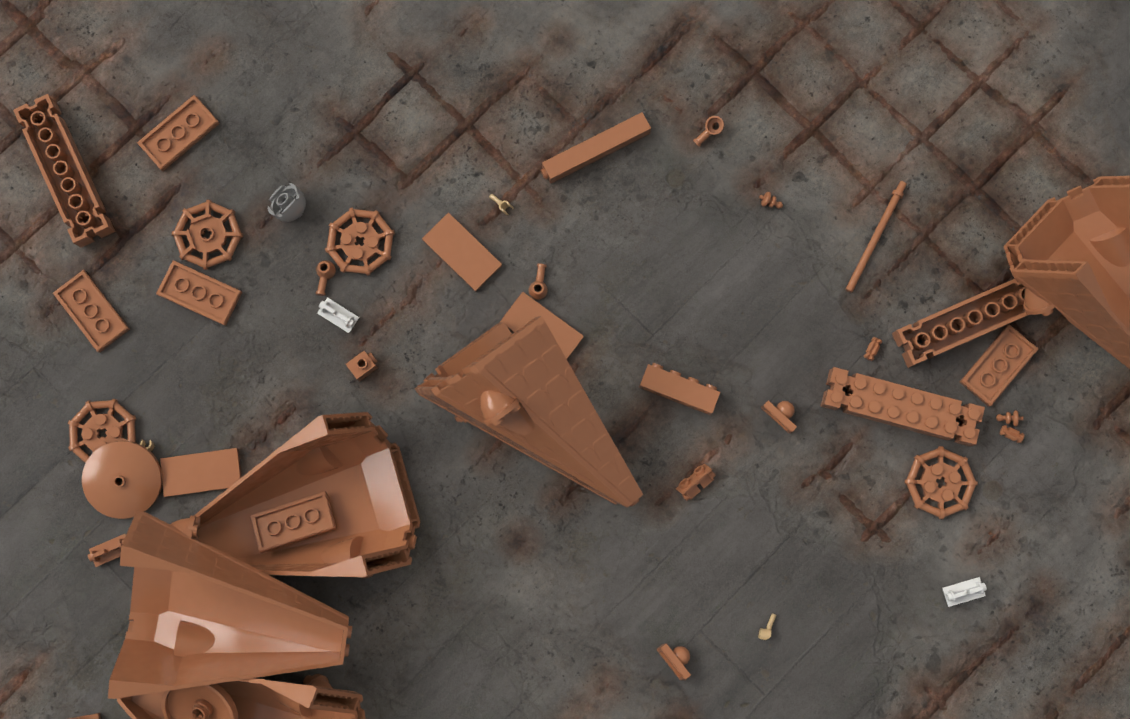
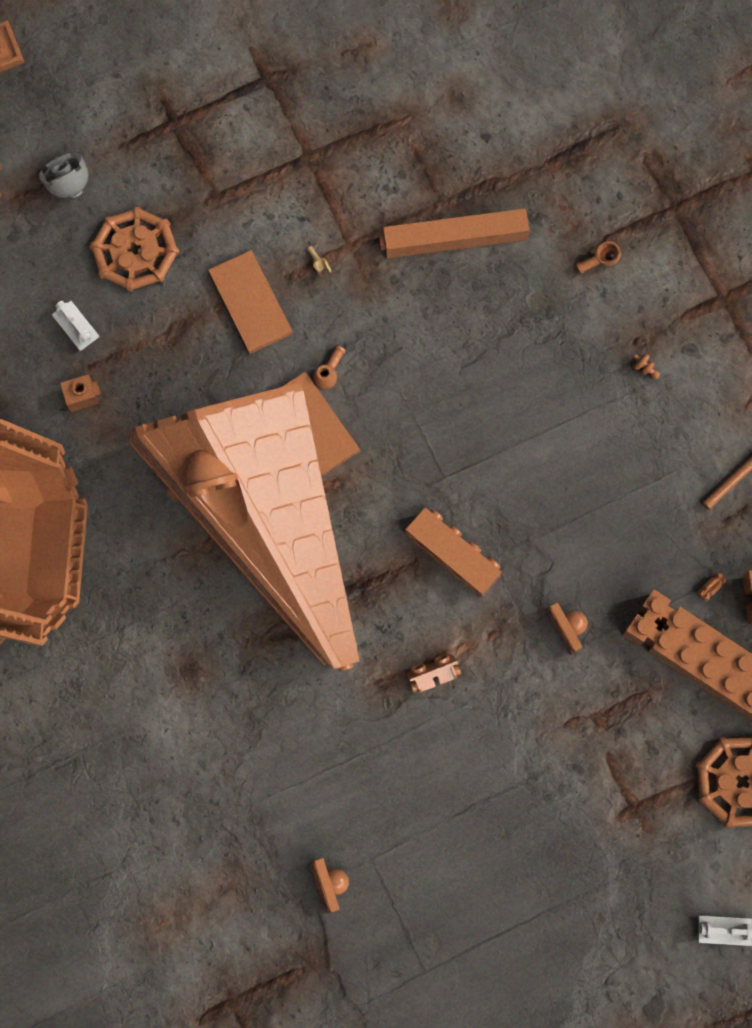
camera: 20 degrees right, 5 degrees down
(324, 275) = (77, 274): nougat bar -> none
(766, 633) = (452, 892): tan hand -> none

